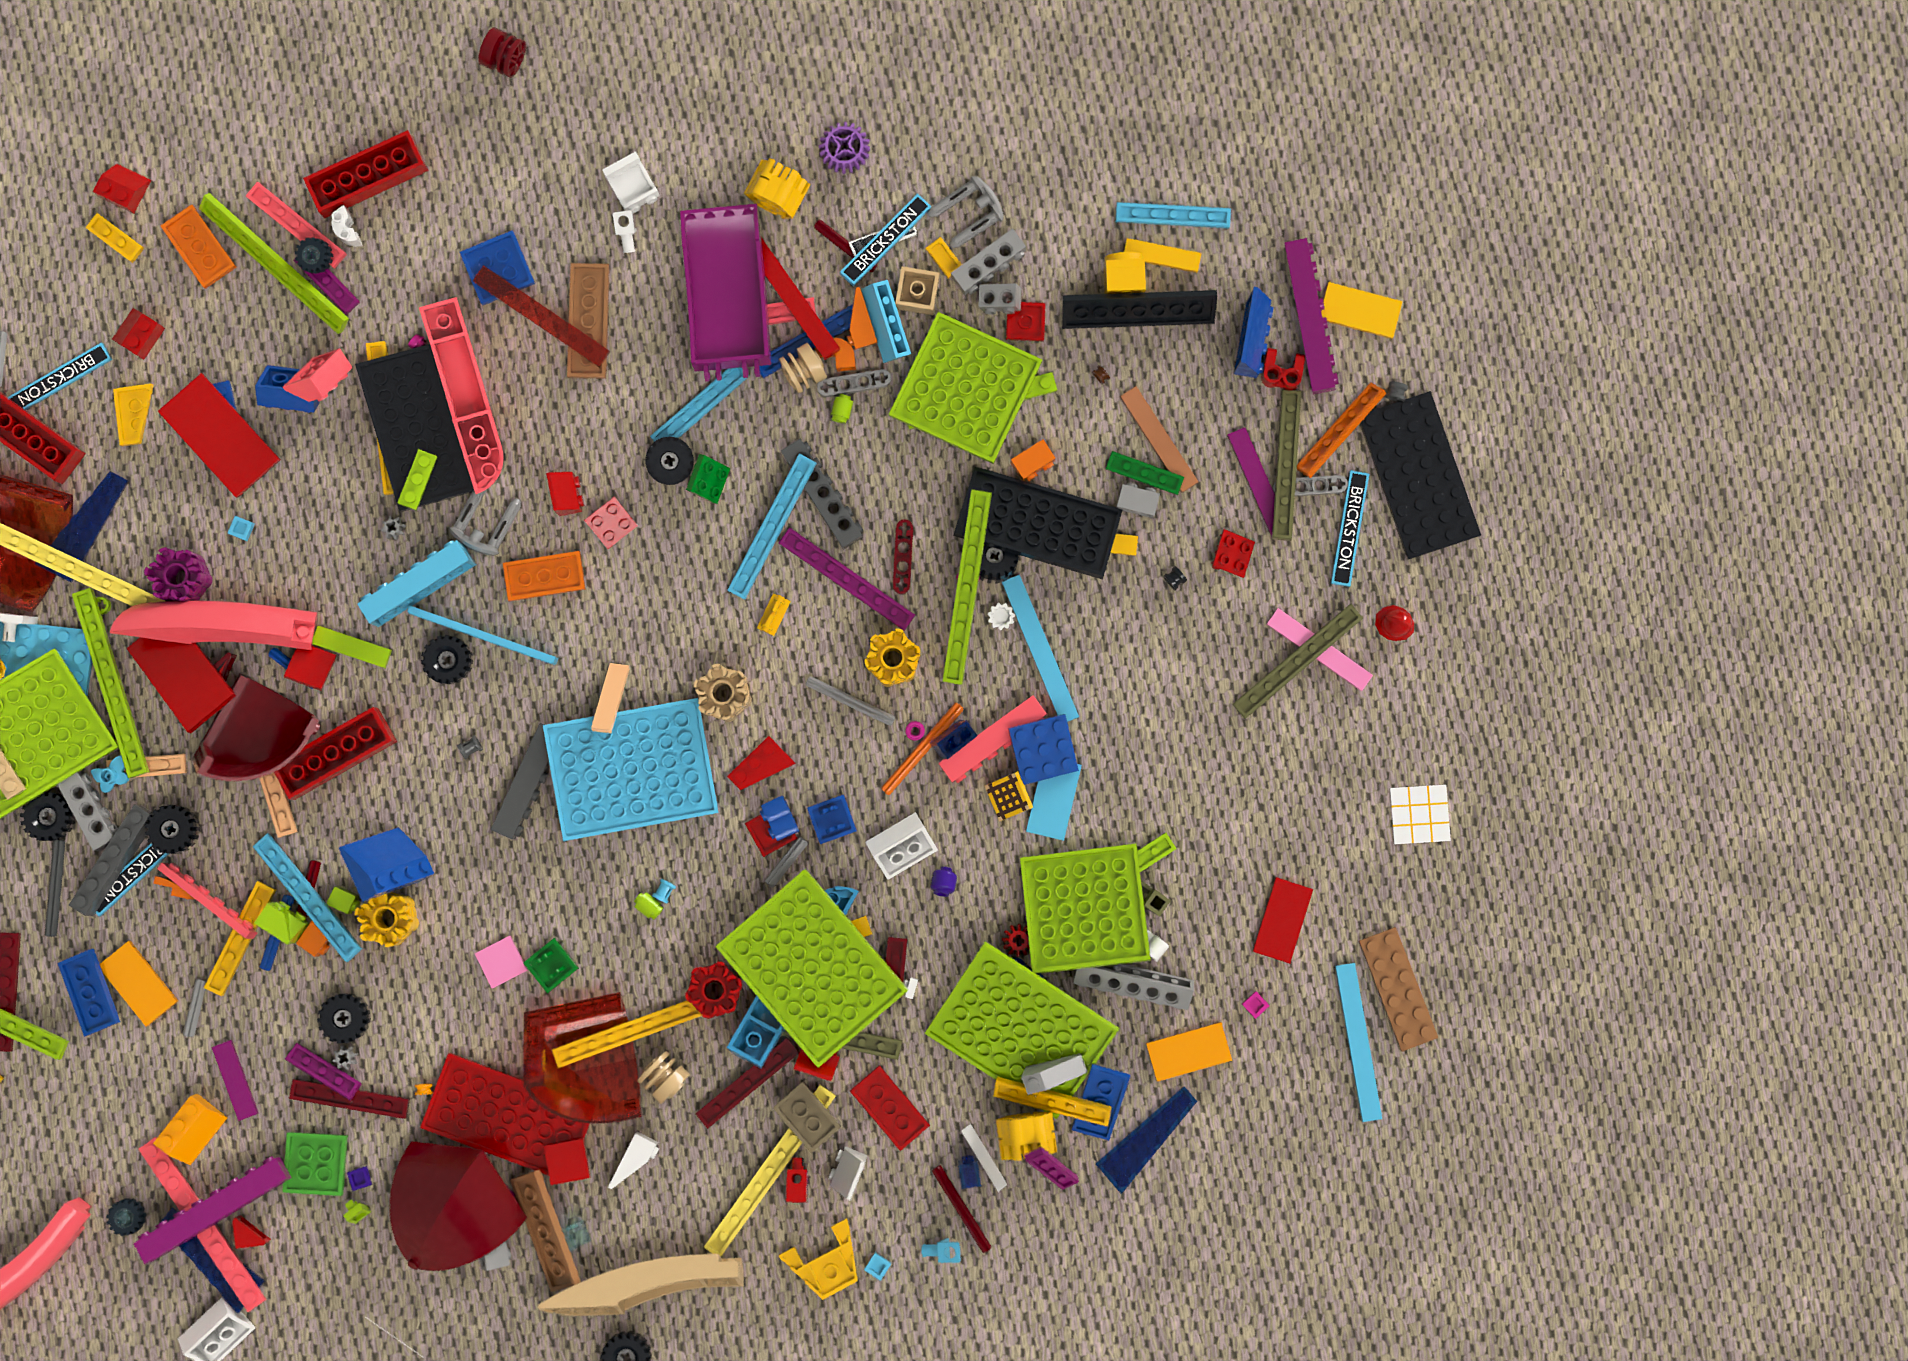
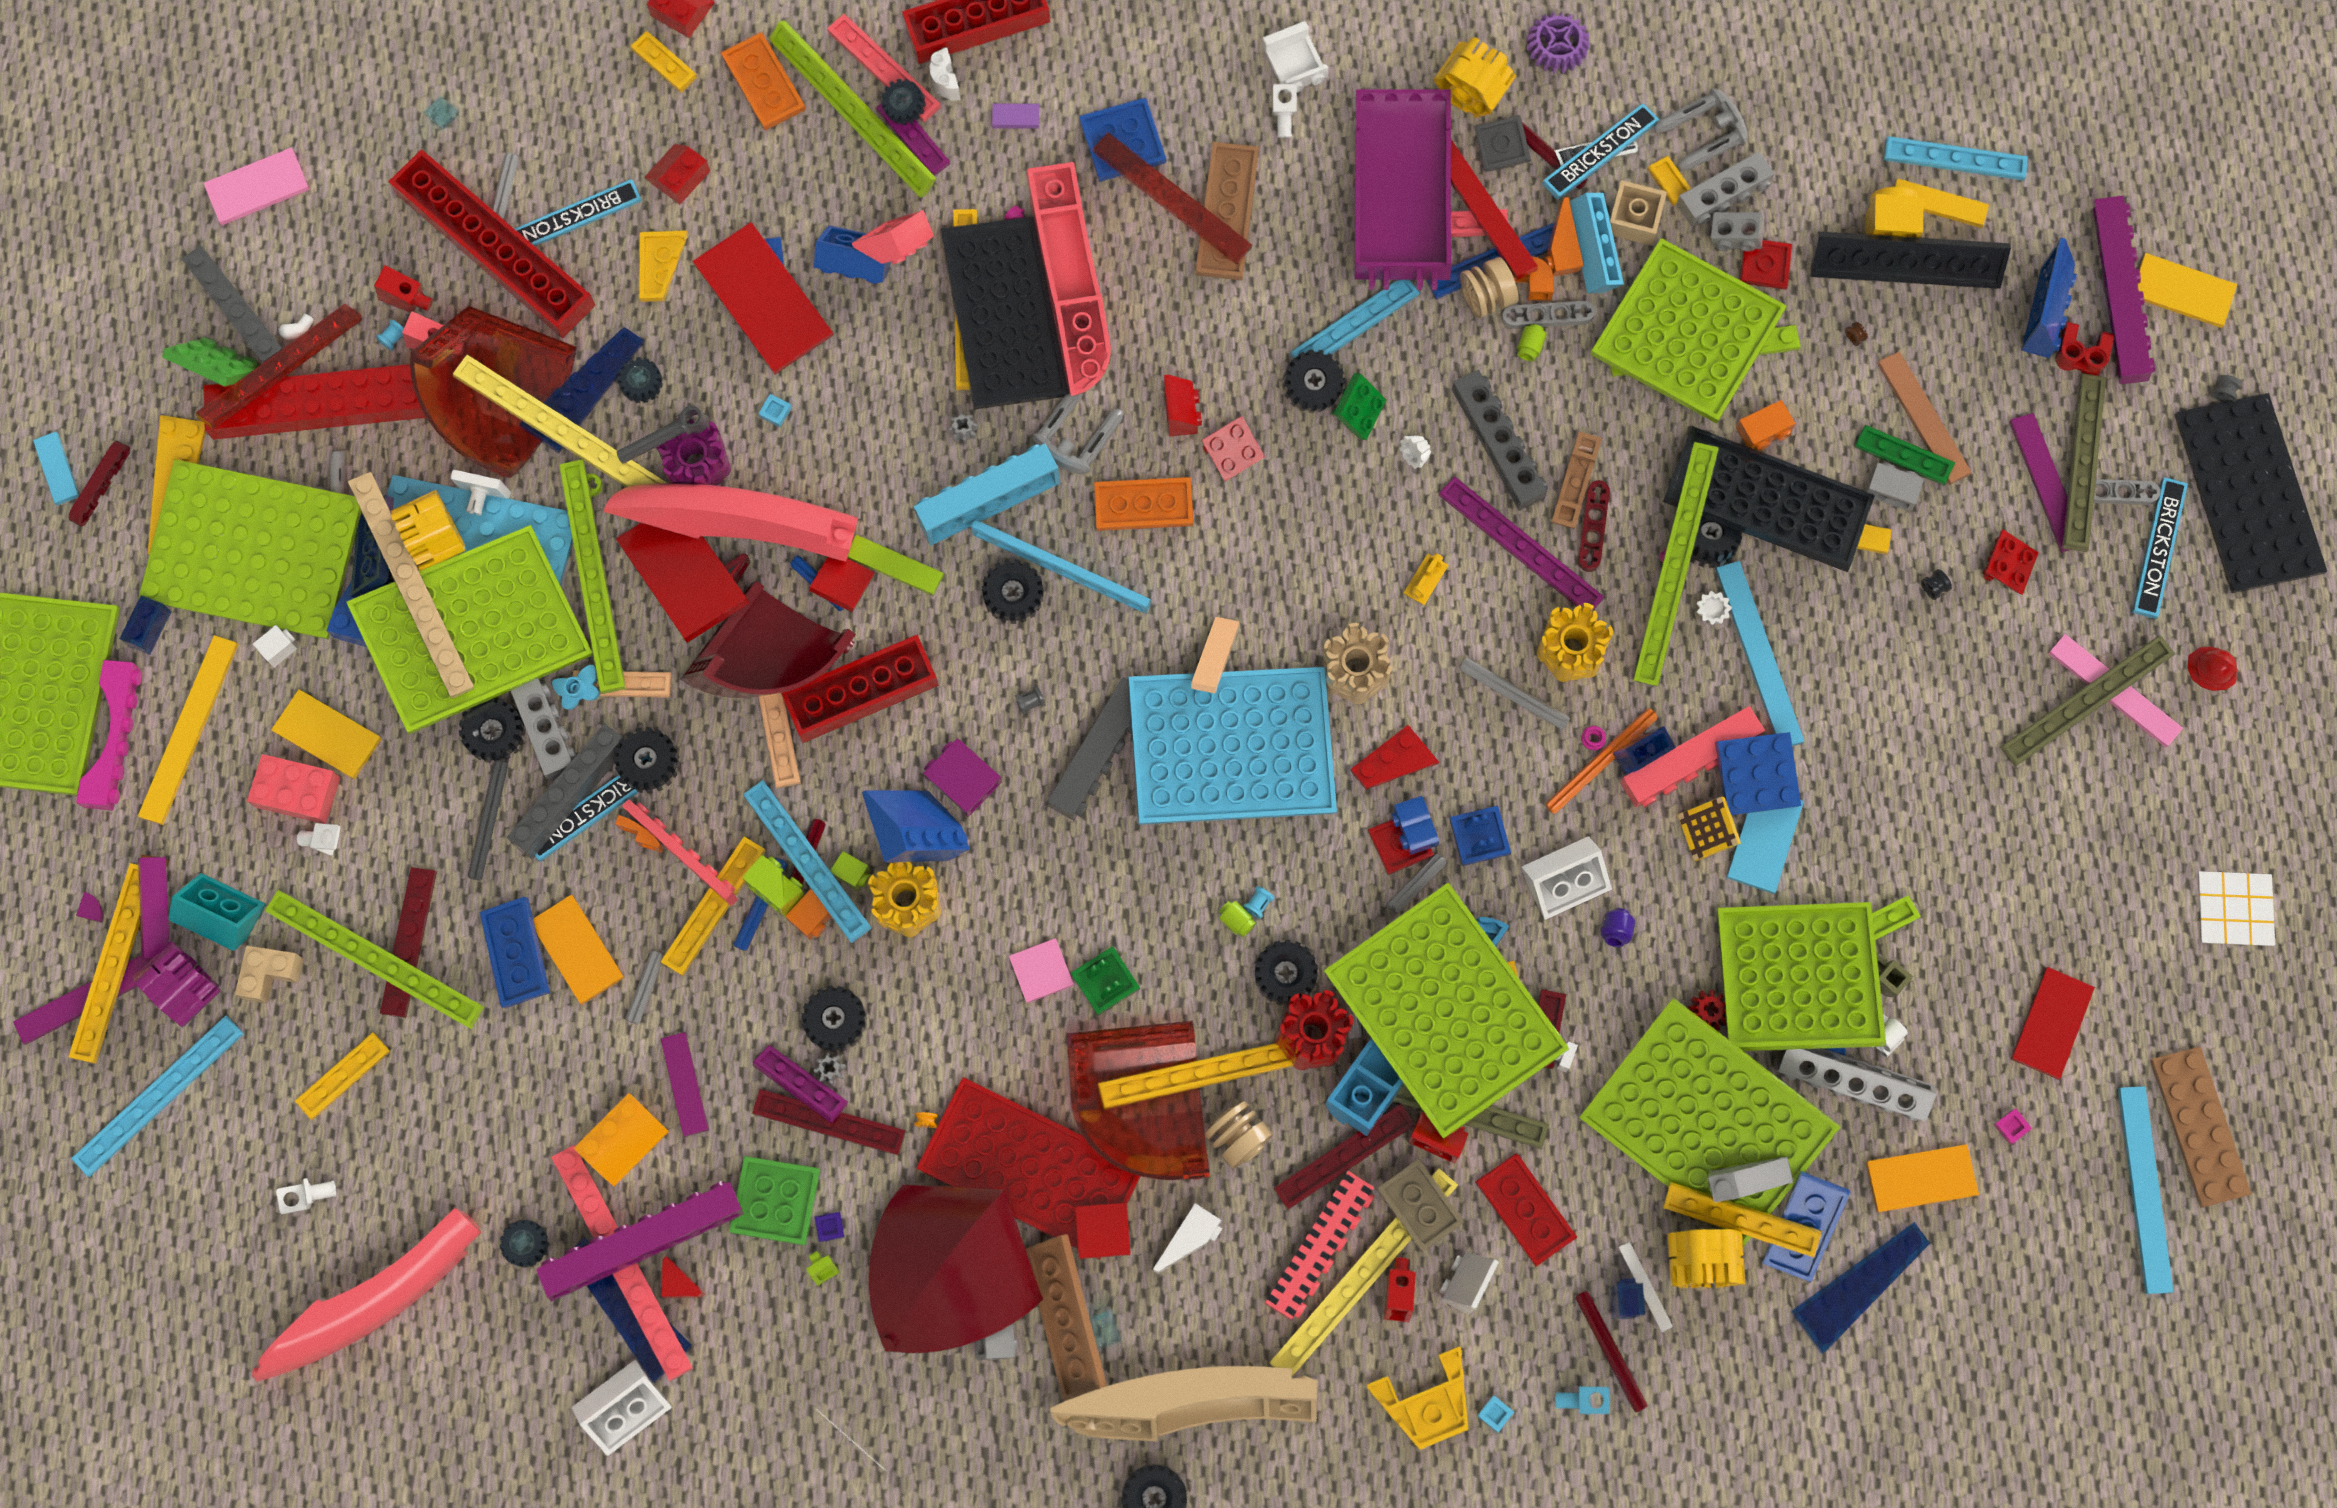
camera: 10 degrees right, 10 degrees down
(122, 512) = (635, 373): none -> black wheel
(150, 565) = (665, 434): none -> dark grey axle
(408, 255) = (1015, 115): none -> medium lavender tile
(417, 480) = (1001, 371): lime plate -> none
(422, 815) = (962, 776): none -> magenta panel
(682, 955) = (1273, 961): none -> black bush
(734, 1153) = (1319, 1246): none -> coral brick
(756, 509) = (1415, 450): none -> white piece
(772, 526) = (1434, 471): medium azure tile -> none
(806, 240) = (1502, 143): none -> dark grey tile
(886, 521) = (1576, 480): none -> medium nougat slope
(1051, 1168) = (1738, 1302): magenta tile -> none
(1340, 430) = (2153, 427): orange tile -> none

